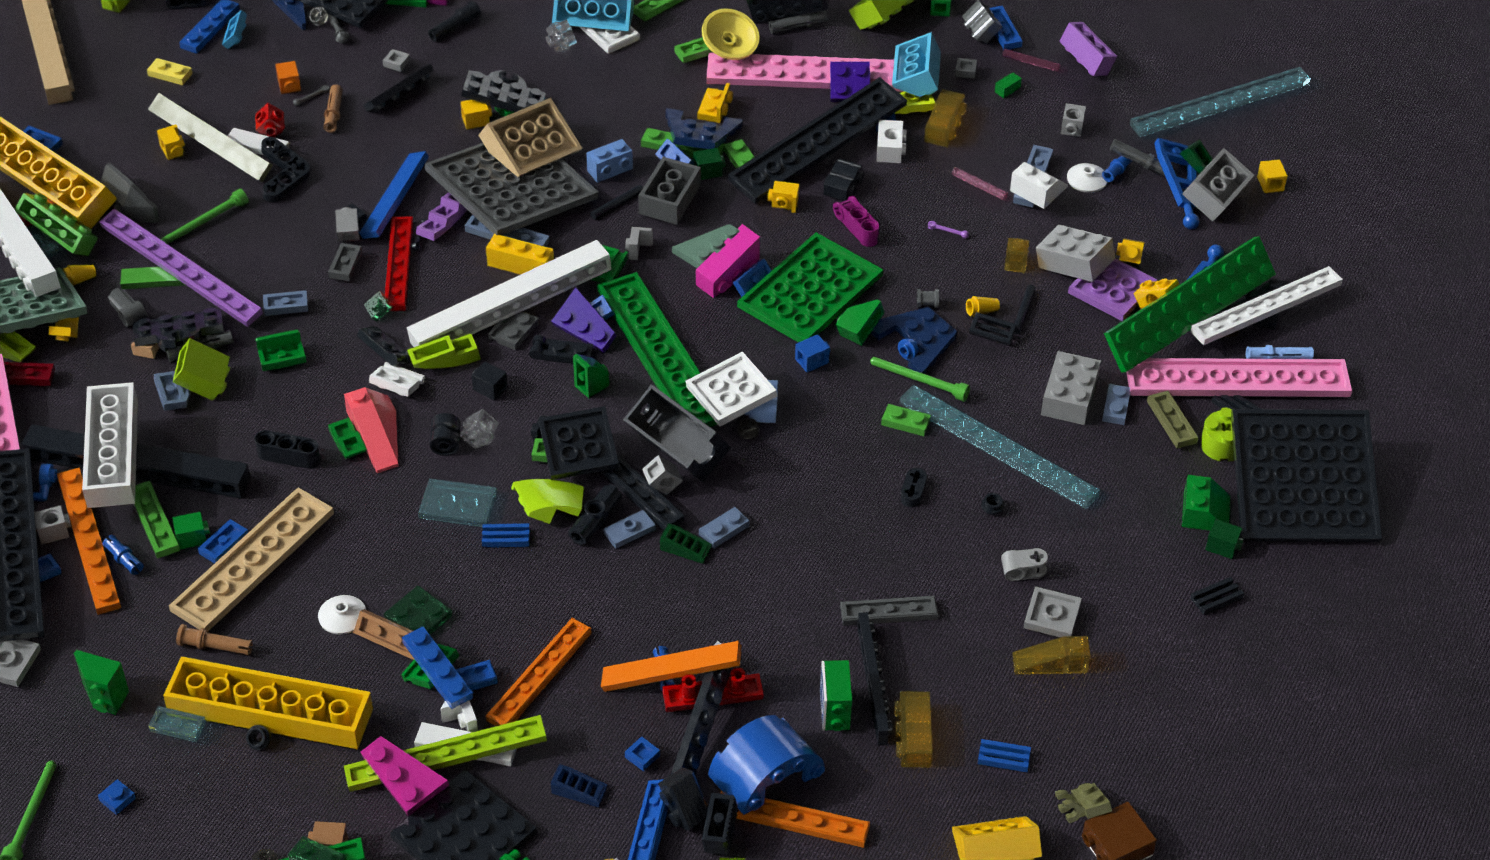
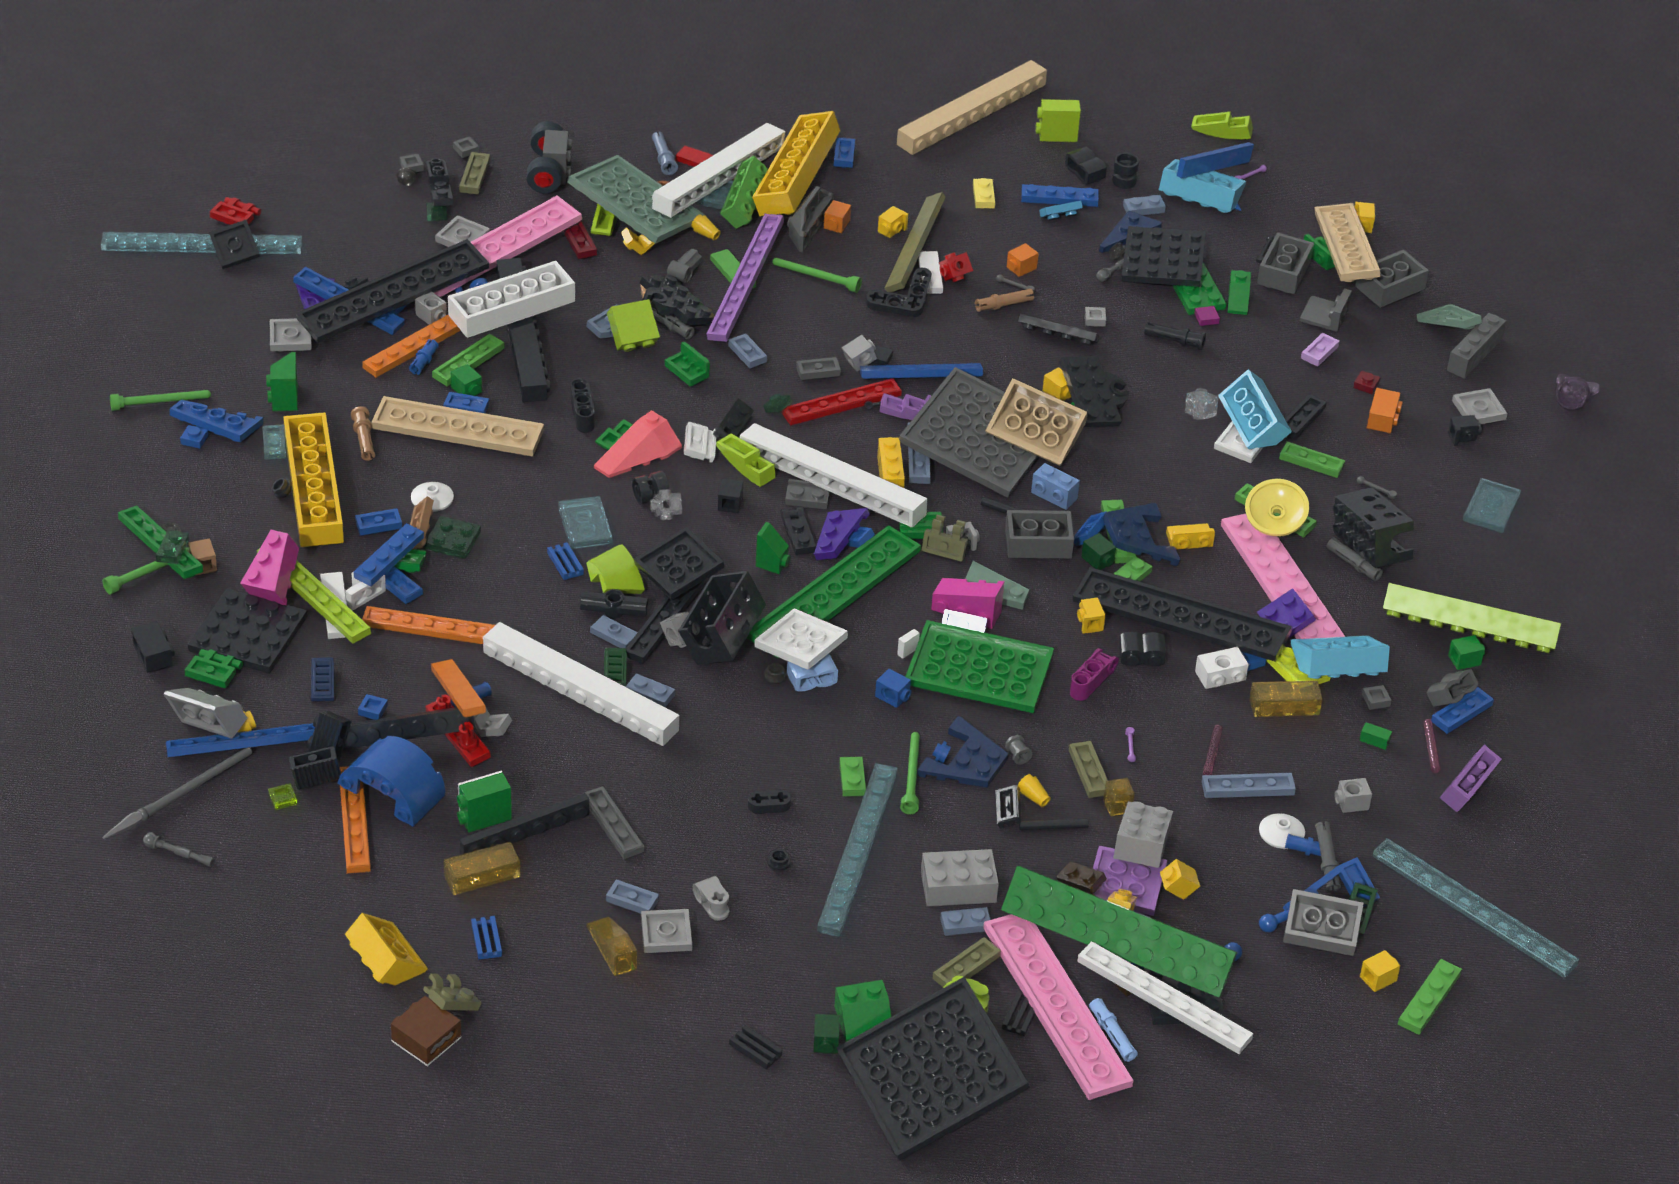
camera: 65 degrees right, 5 degrees down
(115, 761) = (216, 420): none -> blue wing
(136, 173) = (837, 216): none -> orange brick
(362, 667) = (378, 521): none -> blue plate
(644, 256) = (943, 544): none -> olive plate
(691, 575) = (581, 684): none -> white brick
(759, 324) = (908, 643): none -> white tile
(859, 321) = (949, 706): green slope -> none
(971, 262) = (1088, 768): none -> olive plate
(999, 625) = (631, 897): none -> sand blue plate
(1036, 185) = (1227, 783): white slope -> none
(1103, 310) = (1081, 877): none -> dark brown plate
(1303, 161) = (1429, 996): none -> bright green plate

